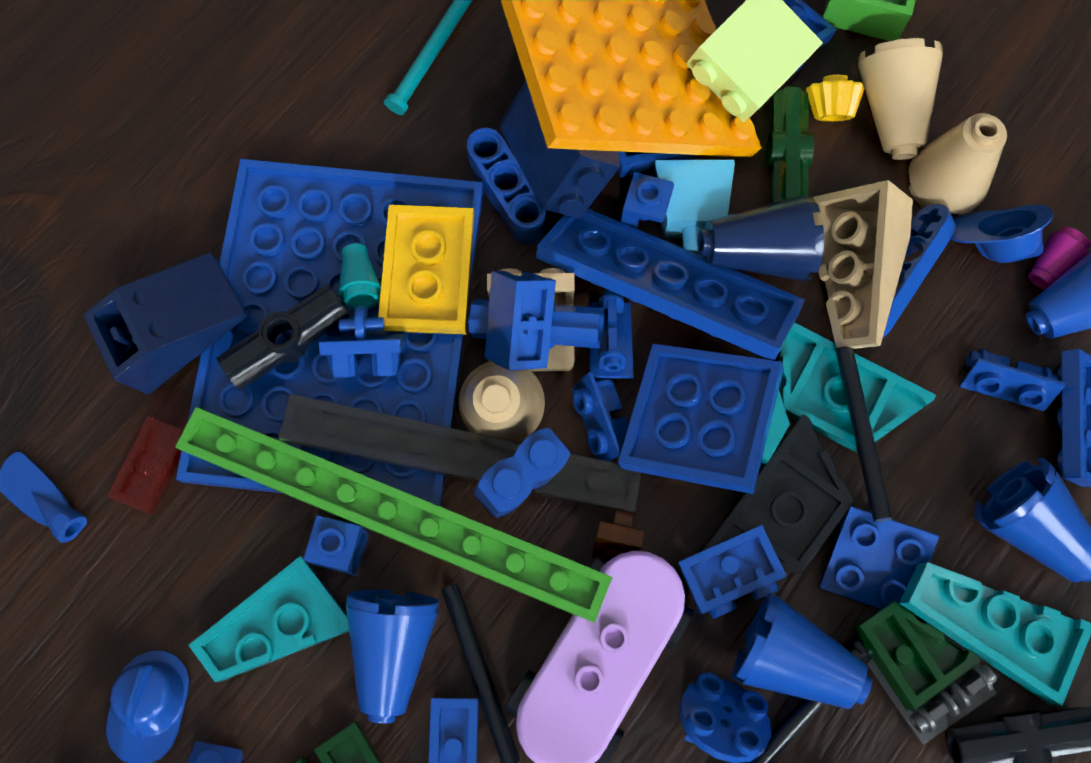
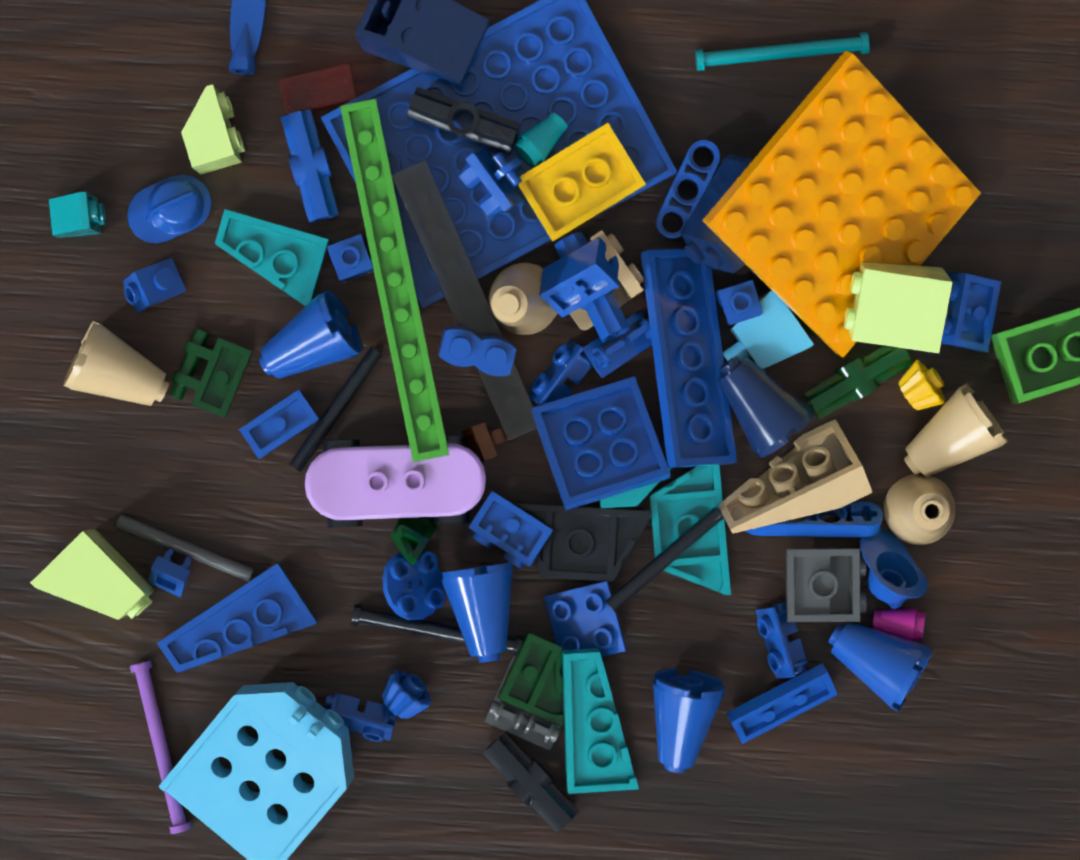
camera: 55 degrees right, 15 degrees up
(98, 601) = (209, 135): none -> yellowish green slope
(215, 524) = (309, 166): none -> blue piece
(674, 684) = (412, 536): none -> dark green slope
(981, 299) = (824, 585): none -> dark grey plate

